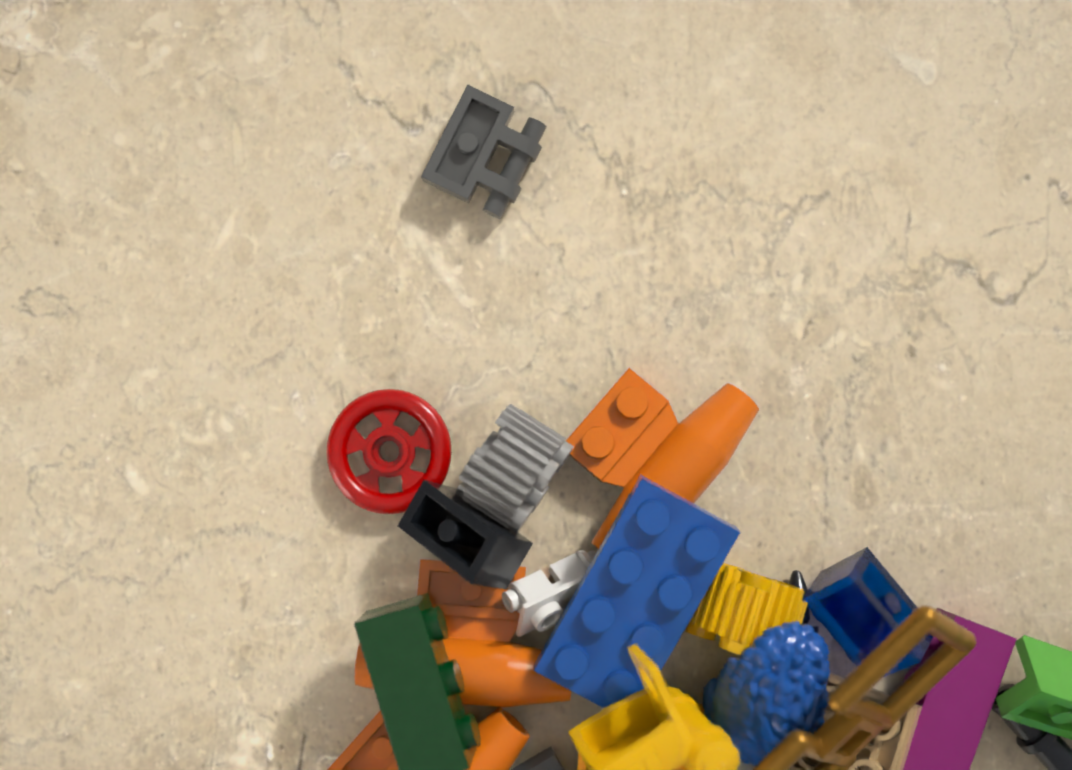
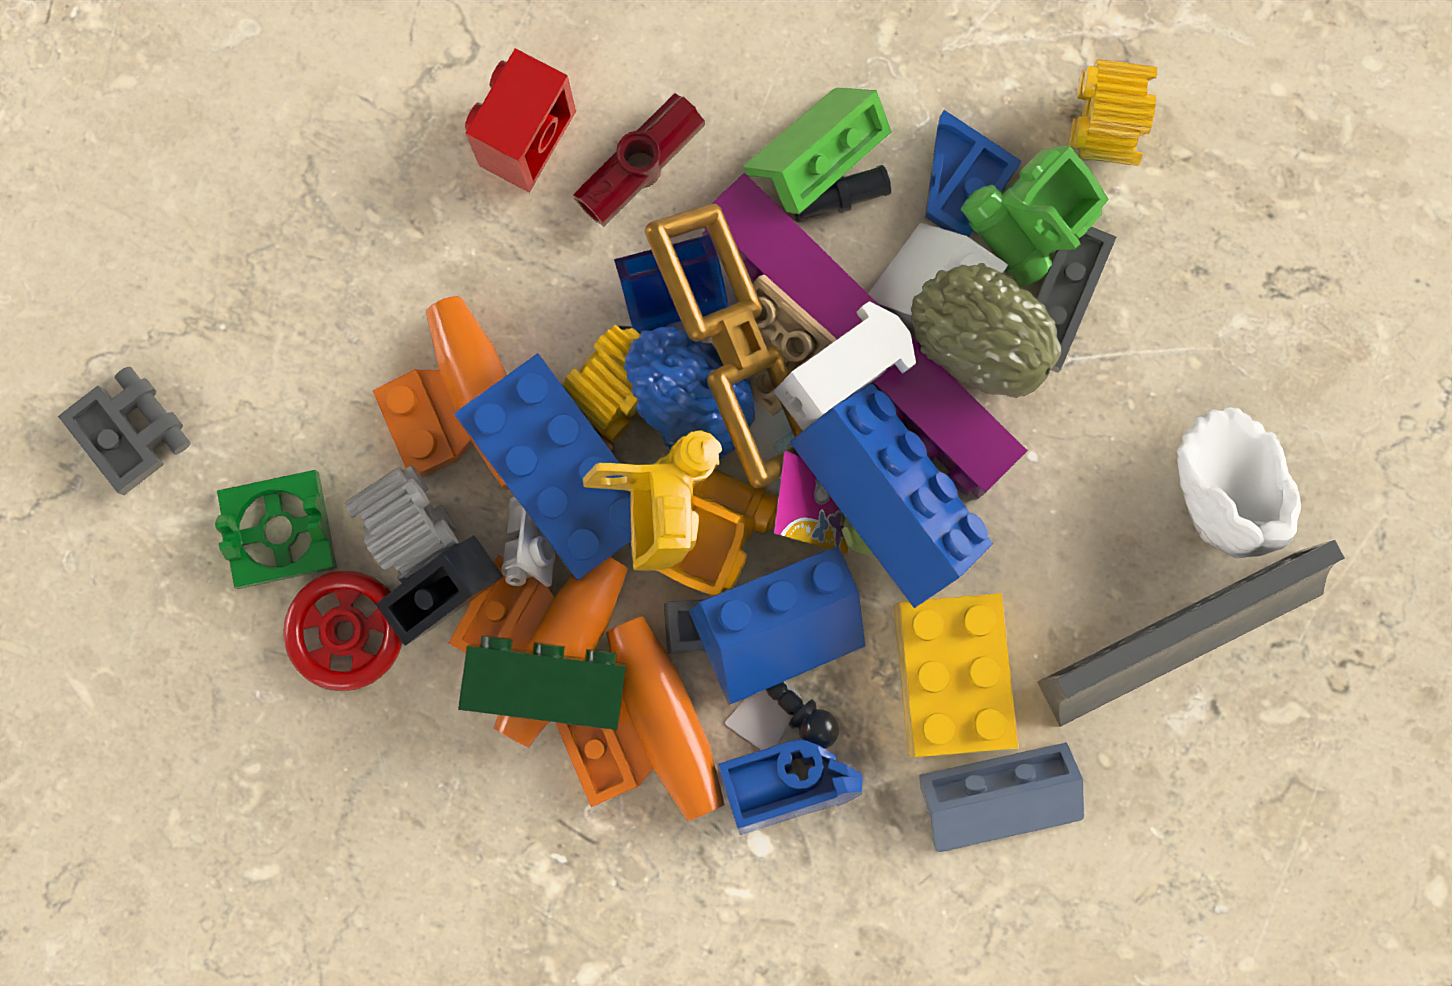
camera: 65 degrees left, 5 degrees down
(405, 328) = (237, 499): none -> green piece
(967, 388) = (520, 119): none -> red brick
(1004, 529) = (659, 138): none -> dark red piece

